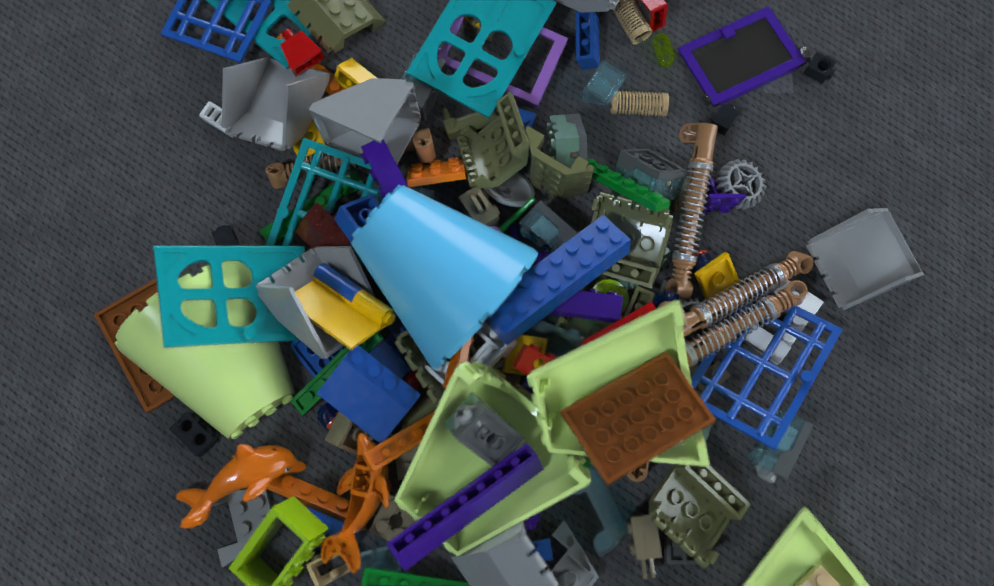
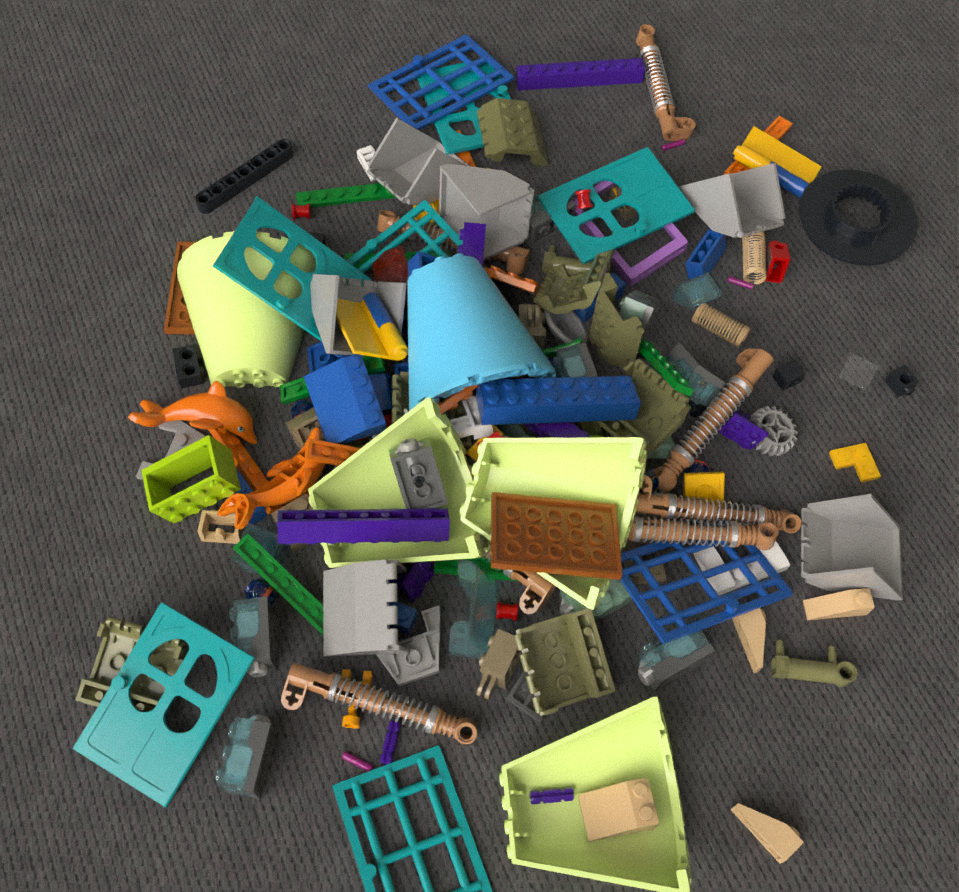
camera: 25 degrees right, 15 degrees down
(106, 197) = (244, 176): none -> black beam
(188, 210) = (301, 211): none -> red bush
(213, 171) = (343, 195): none -> green plate
(300, 51) = (465, 144): red torso -> none
(453, 57) = (586, 198): none -> red bush
(620, 487) = (506, 611): none -> red bush
(631, 47) = (740, 282): none -> magenta piece
(659, 51) = (771, 299): clear neon green beam -> none
(742, 57) = (836, 339): door -> none
(822, 163) = (859, 457): none -> yellow plate
(829, 385) = (751, 632): none -> tan slope
(879, 312) = (839, 604): none -> tan slope
(888, 383) = (812, 670): none -> olive piece
(934, 541) = (772, 833): none -> tan slope

